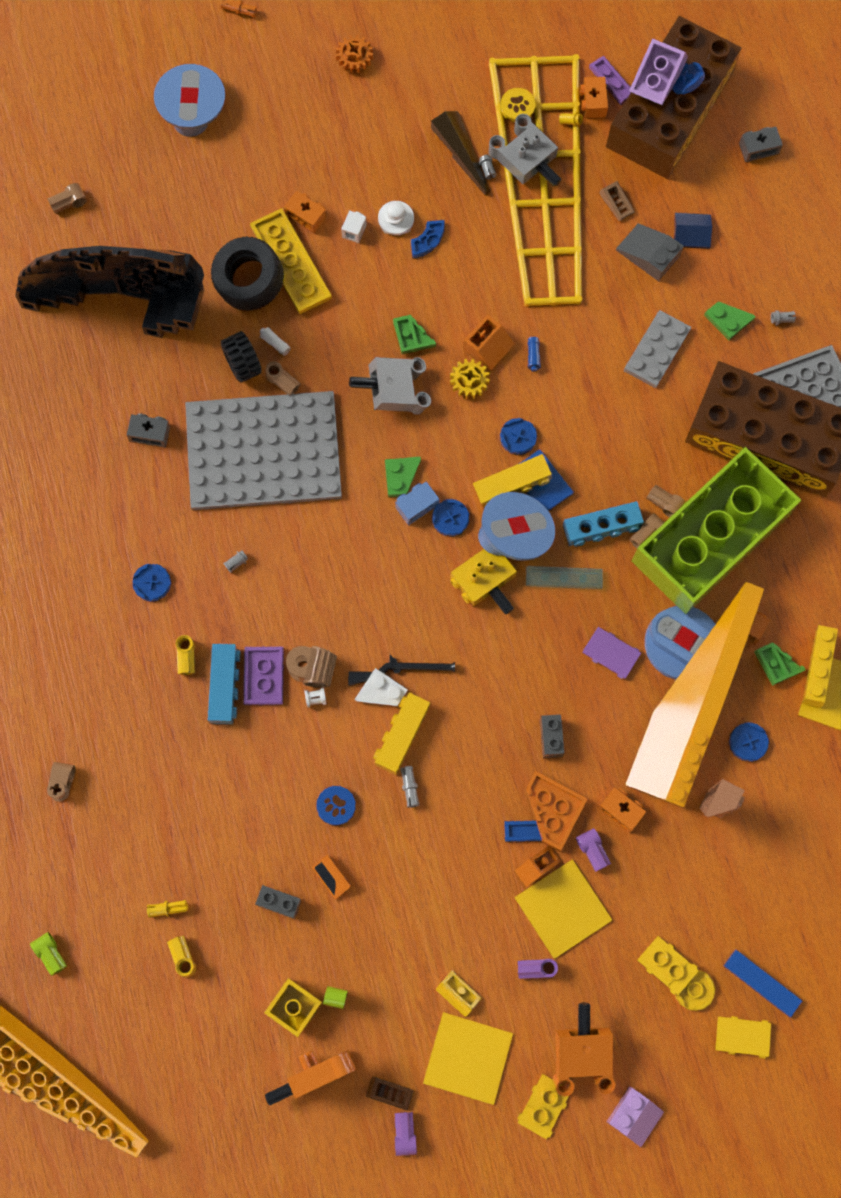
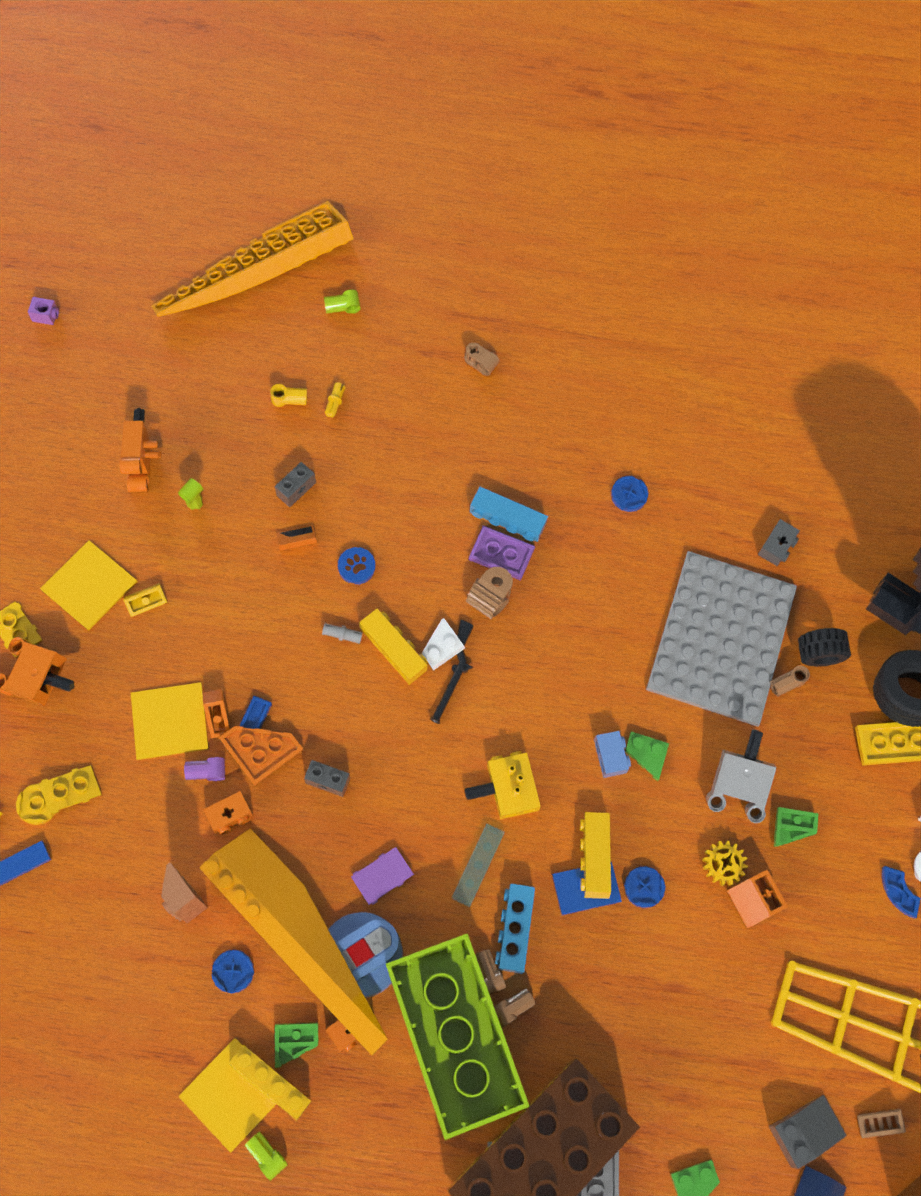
camera: 110 degrees right, 5 degrees down
(185, 657) = (547, 493): yellow piece -> none
(236, 561) = (620, 571): light grey pin -> none
(273, 340) = (833, 691): white piece -> none
(293, 1007) = (202, 460): yellow slope -> none
(322, 700) = (461, 586): white bush -> none
(373, 1086) = (95, 500): reddish brown slope -> none
(405, 1139) = (52, 505): medium lavender piece -> none
(450, 518) = (584, 782): blue tile -> none
(516, 527) = (545, 834): medium blue piece -> none
(533, 354) = (726, 942): blue piece -> none
(534, 969) = (128, 670): medium lavender piece -> none
(657, 349) = (688, 1084): light grey plate -> none

